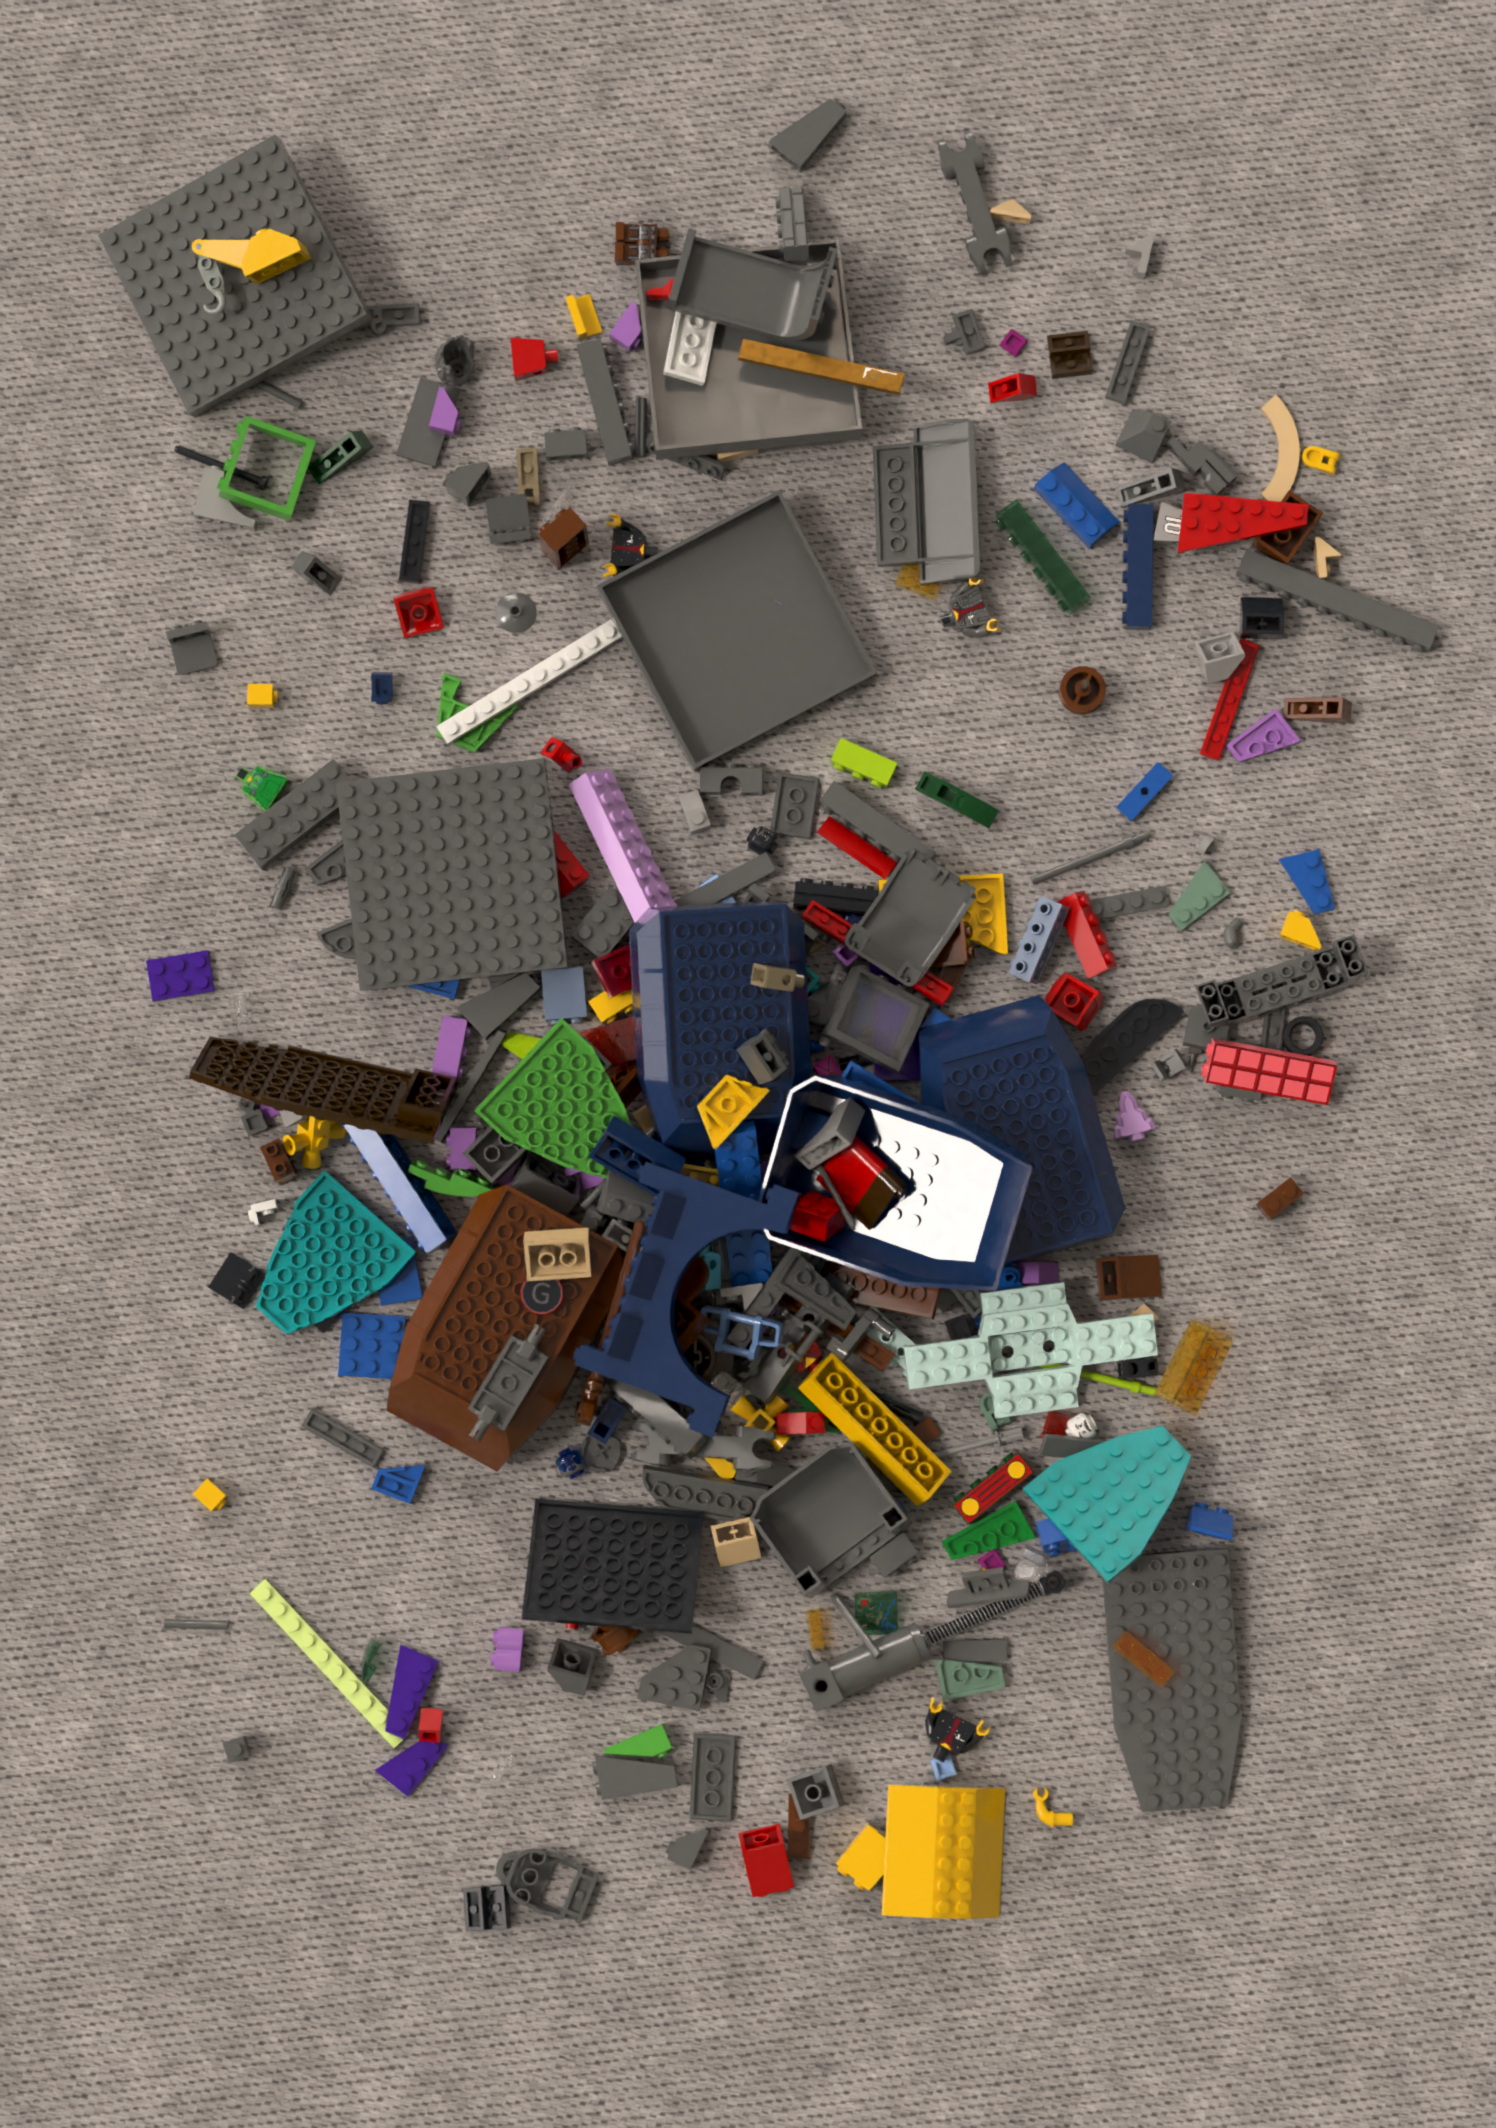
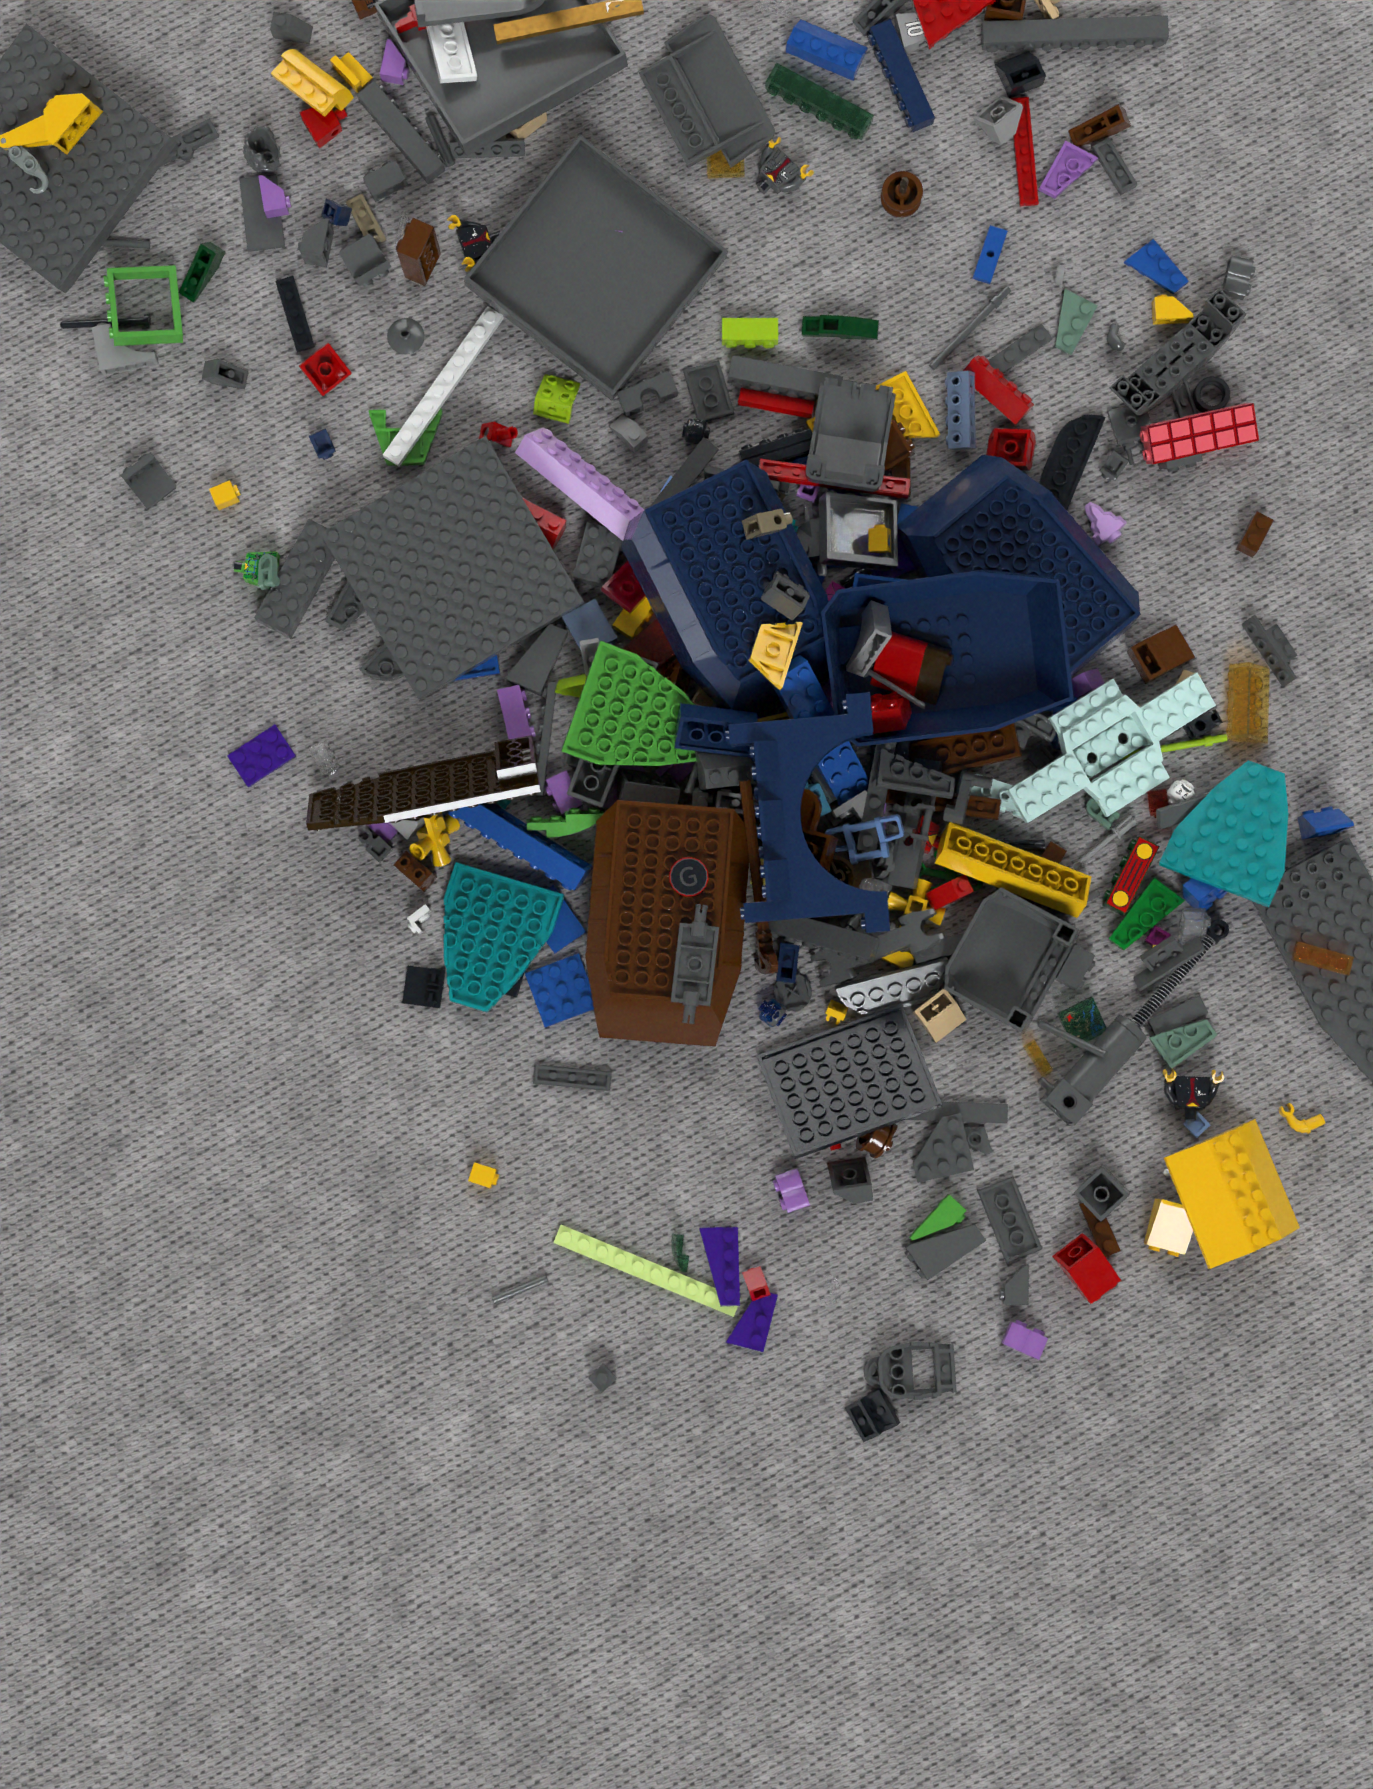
camera: 25 degrees left, 0 degrees up
(269, 792) = (268, 572): none -> sand green plate
(282, 888) = (314, 645): dark grey pin -> none
(399, 1482) = (636, 1093): blue wing -> none
(500, 458) = (336, 213): none -> dark blue slope
(535, 313) = (311, 83): none -> yellow brick
(541, 245) = (290, 28): none -> dark grey slope
(549, 1019) = (588, 650): none -> light grey slope
(557, 1254) = (687, 837): tan slope -> none
(635, 1490) = (836, 1010): none -> yellow tile
(637, 744) = (556, 398): none -> lime bracket
(671, 1902) = (1025, 1340): none -> medium lavender brick
(892, 1036) = (879, 539): none -> yellow brick
(1246, 1323) = (1273, 648): none -> dark grey bracket
(1314, 756) = (1114, 166): none -> dark grey plate
(1386, 927) = (1237, 277): none -> dark grey brick

